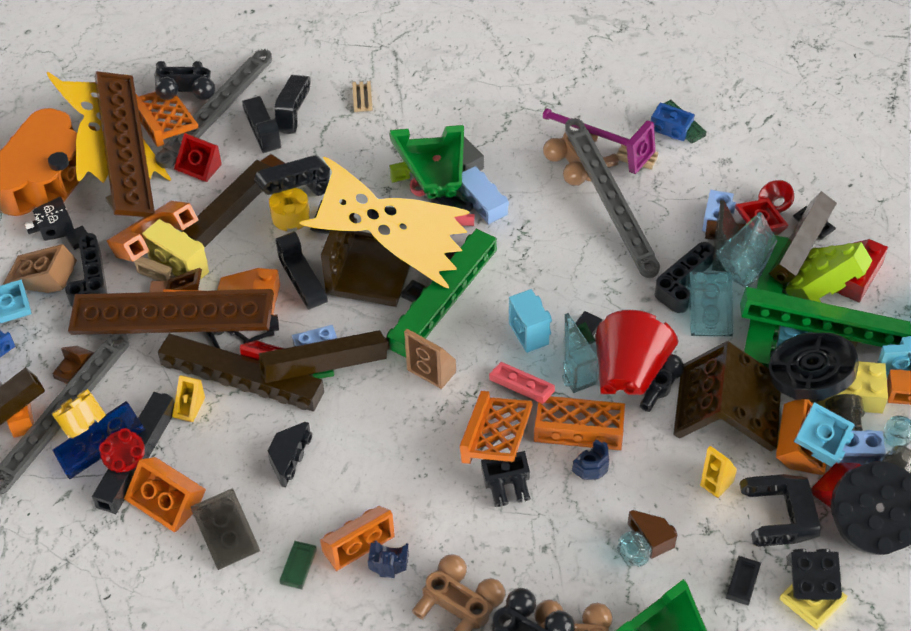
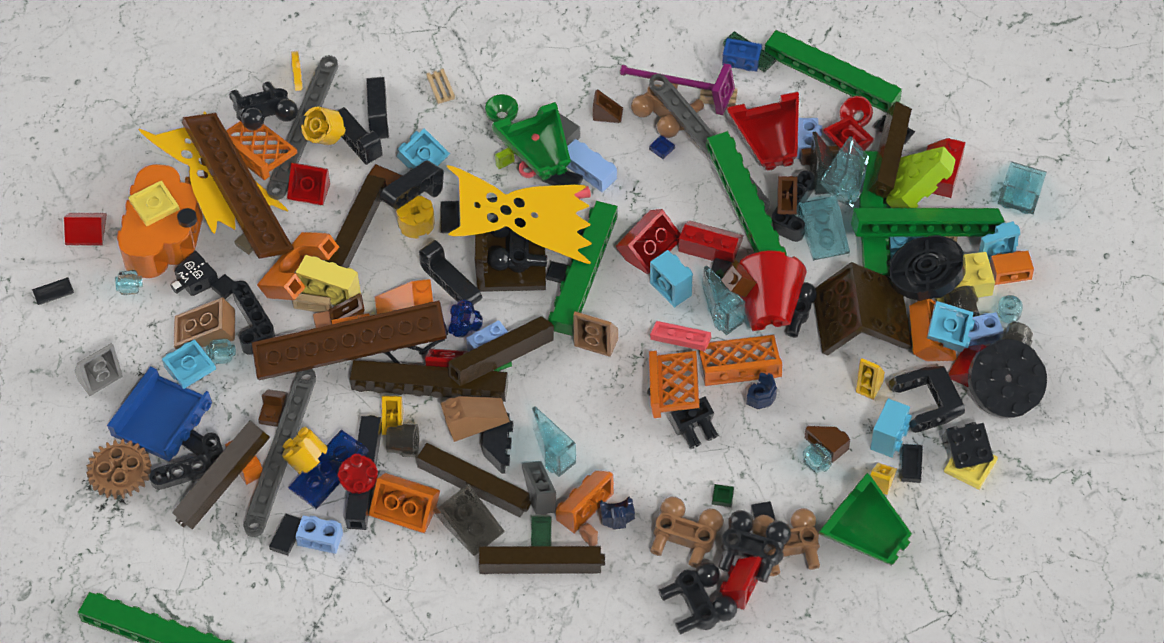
camera: 15 degrees left, 5 degrees up
(30, 499) = (285, 535): none -> black tile
(33, 142) = (153, 203): none -> light yellow tile
(44, 297) = (221, 351): none -> clear light blue head
(59, 510) = (317, 539): none -> light blue brick
(188, 426) = (403, 440): none -> clear smoke piece
(228, 56) = (296, 70): none -> yellow tile
(230, 107) = (323, 126): none -> yellow brick
(247, 487) = (483, 483): none -> dark brown brick
(268, 416) = (473, 415): none -> medium nougat slope
(286, 592) = (540, 559): none -> dark brown brick
(300, 317) = (464, 319): none -> clear blue plate
(313, 511) = (540, 488): none -> dark grey slope
(320, 144) = (422, 148): none -> medium azure plate
(345, 470) = (556, 446): none -> clear light blue slope
(349, 576) = (589, 534): none -> nougat tile
(379, 258) = (501, 258): none -> black piece
(414, 122) = (501, 103): none -> green piece
(515, 567) = (723, 495): none -> dark green tile
(516, 145) = (606, 109): none -> reddish brown slope
(518, 275) = (649, 239): none -> red slope
(555, 593) = (762, 509): none -> black tile
(563, 192) = (662, 147): none -> clear blue tile
(583, 293) = (709, 242): none -> red slope
(597, 334) = (738, 279): none -> reddish brown slope
(631, 250) = (743, 193): none -> green brick
(677, 260) = (787, 195): none -> reddish brown slope
(679, 196) = (770, 130): none -> red cone
(704, 588) = (883, 476): none -> yellow slope
(727, 534) = (891, 428): none -> medium azure brick
(762, 153) = (832, 71): none -> green brick

